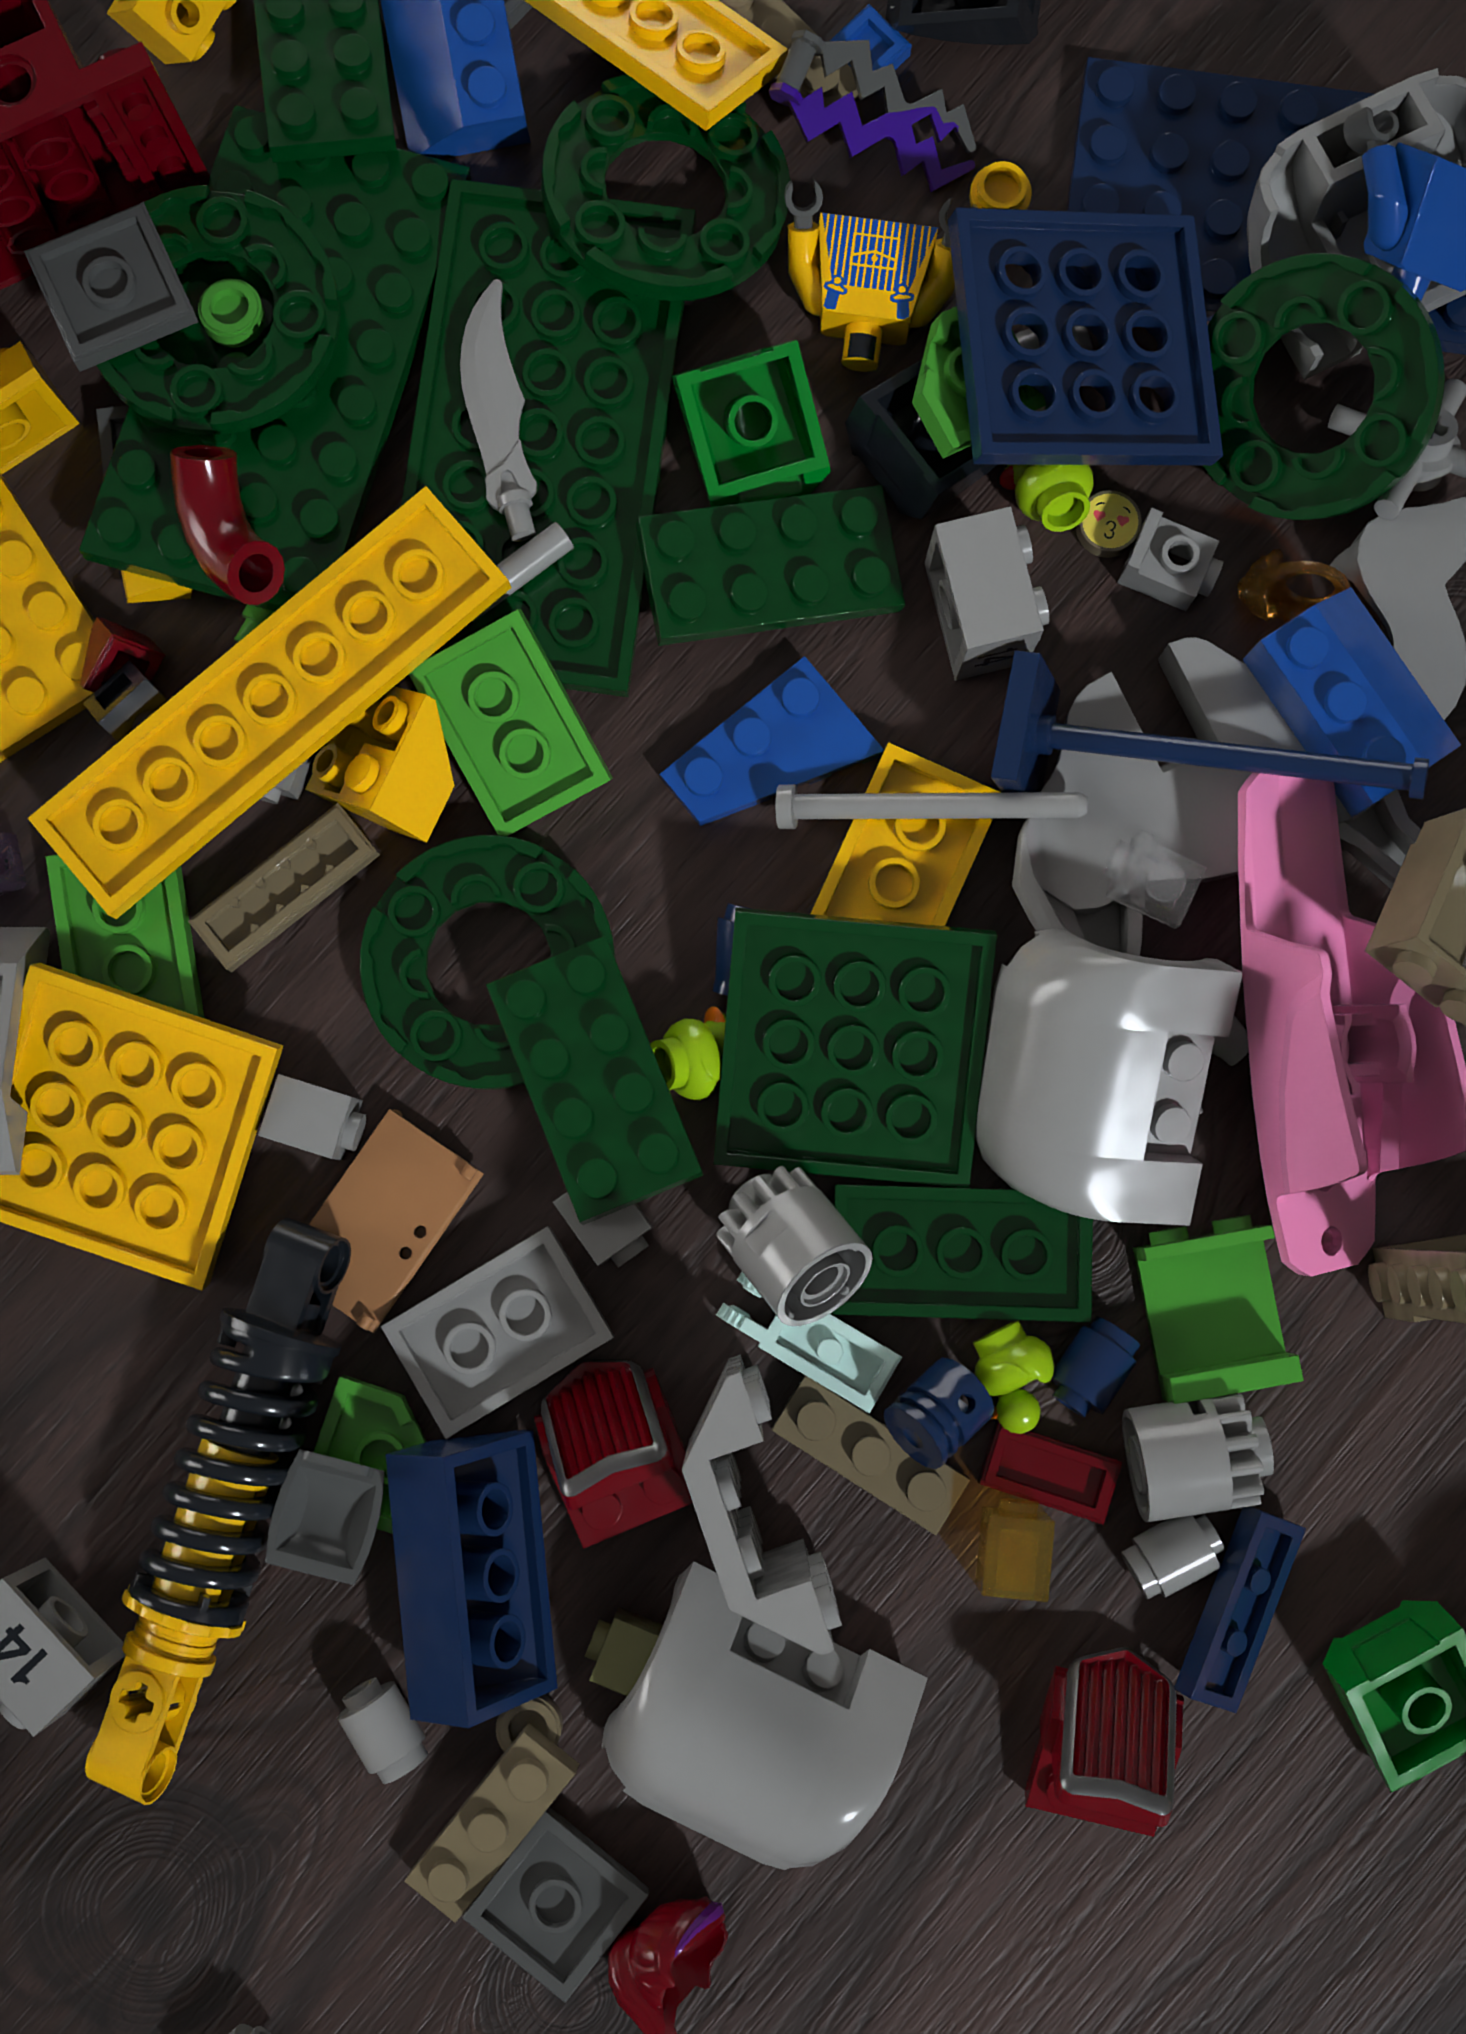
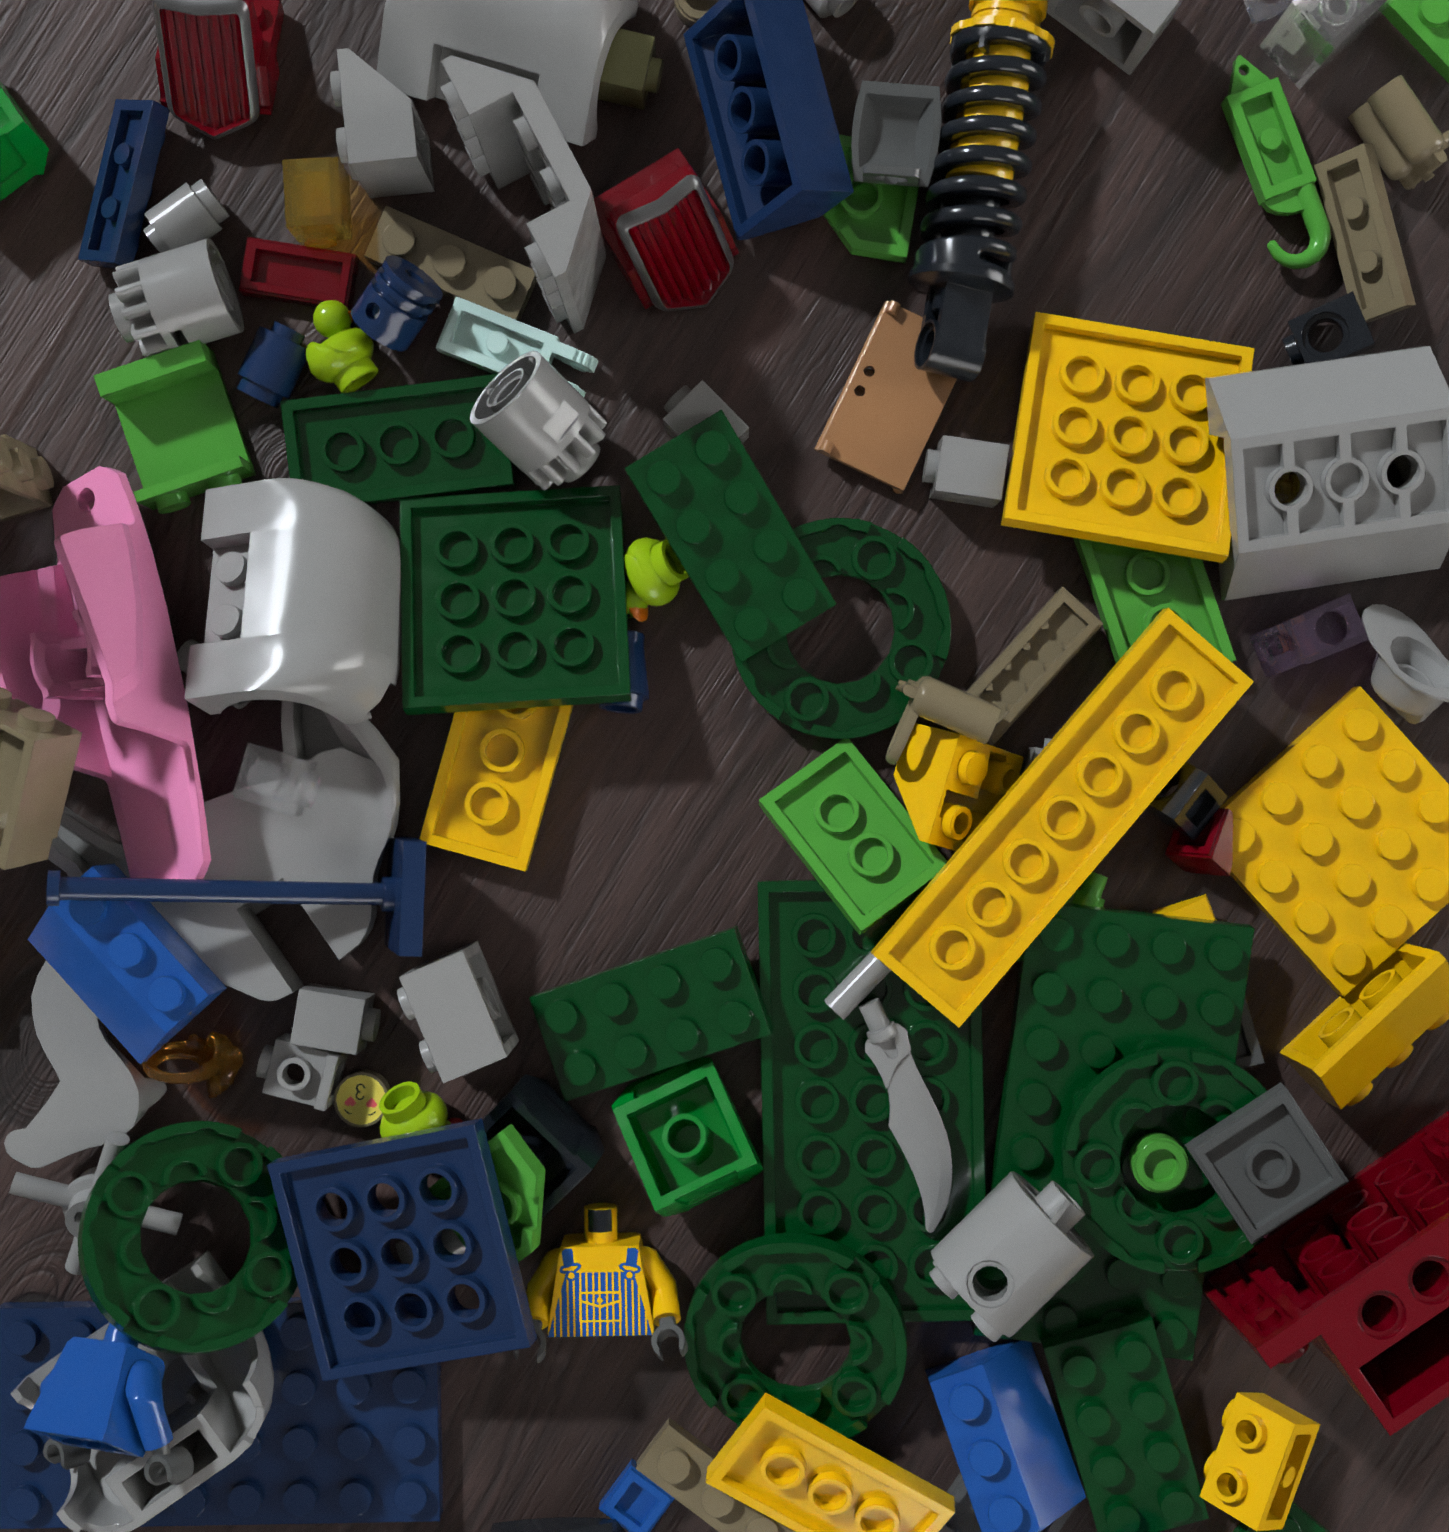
camera: 170 degrees right, 5 degrees up
(218, 527) = (1133, 961): dark red cylinder -> none
(381, 845) = (945, 707): none -> dark tan piece
(408, 231) = (1026, 1238): none -> light grey cylinder
(497, 1331) = (779, 317): light grey plate -> none
(783, 735) = (627, 856): blue wing -> none
(794, 806) = (486, 816): light grey bar -> none
(894, 125) = (601, 1431): piece -> none
(924, 1615) = (381, 131): none -> light grey slope
(1001, 187) = (499, 1383): yellow plate -> none
(1126, 612) = (335, 1019): none -> light grey brick

